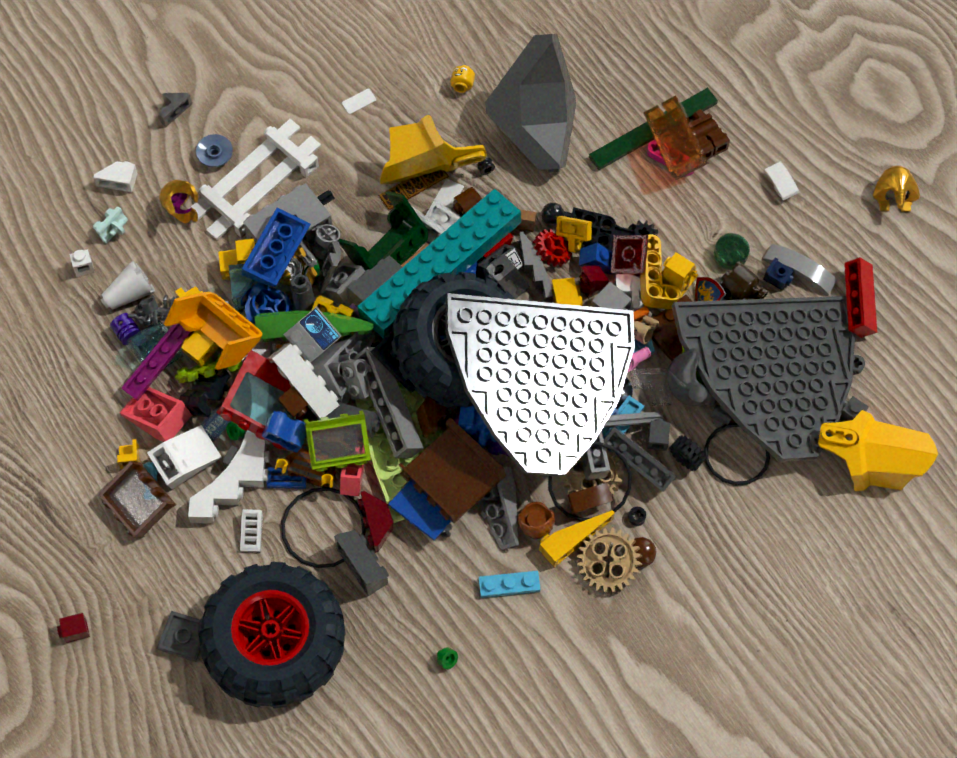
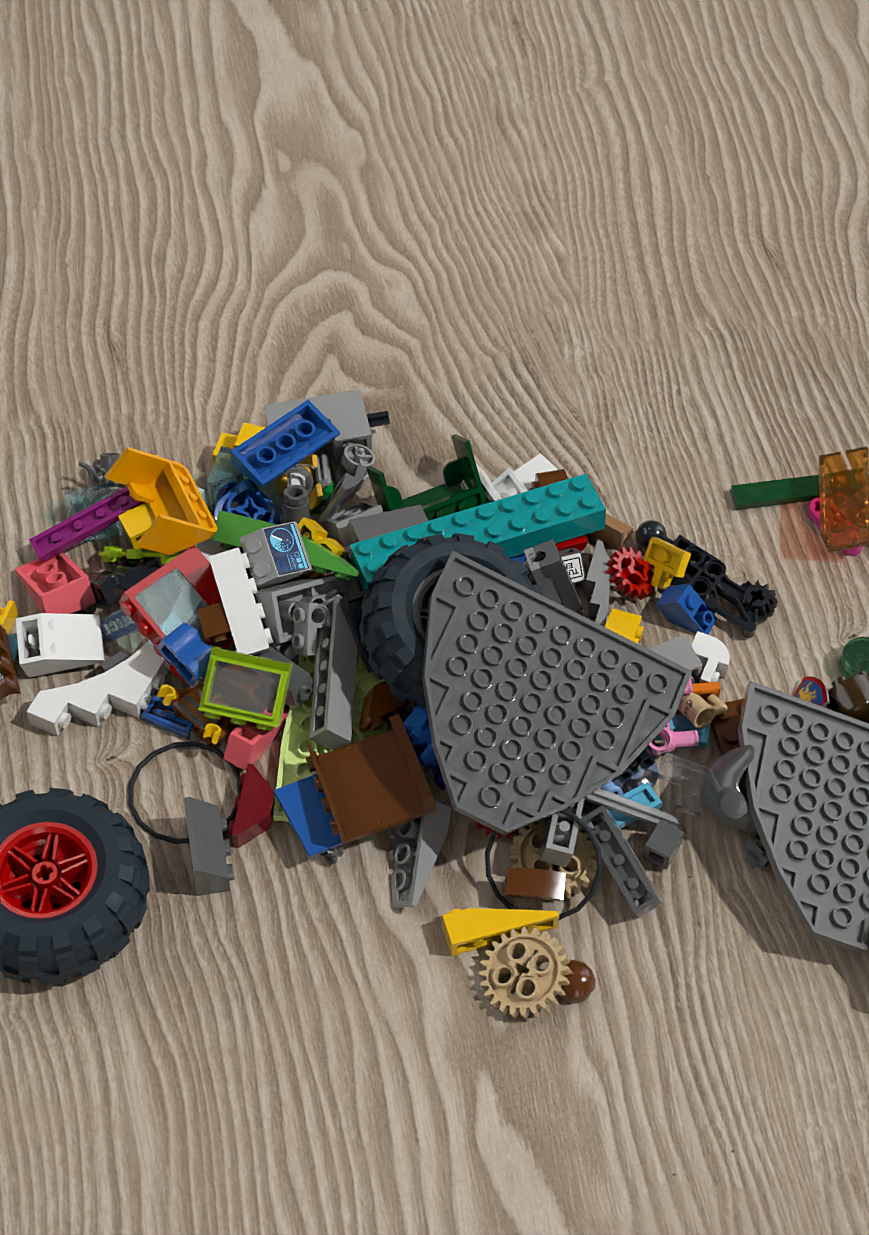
camera: 25 degrees right, 10 degrees down
(79, 259) = (61, 384): white brick -> none
(111, 225) = (117, 363): light aqua hips -> none
(117, 176) = (151, 316): white slope -> none
(126, 329) = (70, 478): dark purple piece -> none
(127, 287) = (97, 434): white cone -> none
(174, 195) = (205, 357): pearl gold piece -> none
(176, 105) = (258, 266): flat silver slope -> none
(210, 145) = (277, 326): sand blue dish -> none
(234, 431) = (135, 639): green tile -> none
(236, 214) = (374, 369): white fence -> none
(252, 514) = (104, 745): white slope -> none
(359, 101) = (476, 334): white sticker -> none
(414, 186) = (503, 446): sticker -> none
(420, 150) = (514, 406): yellow piece -> none
(447, 658) = (255, 1009): green tile -> none
(462, 78) = (612, 349): yellow head -> none
(486, 166) = (594, 454): black bush -> none
(509, 584) = (382, 952): medium azure plate -> none
(536, 520) = (452, 886): dark orange piece -> none
(537, 103) = (689, 397): dark grey panel -> none
(592, 280) = (663, 624): dark red slope -> none
(629, 254) = (723, 611): clear red slope -> none
(640, 521) = (588, 927): black bush -> none
(652, 279) = (735, 666): yellow beam -> none
(679, 272) = (777, 659): yellow wedge -> none
(687, 453) = (691, 880): black tyre -> none
(719, 476) = (720, 925): black piece -> none

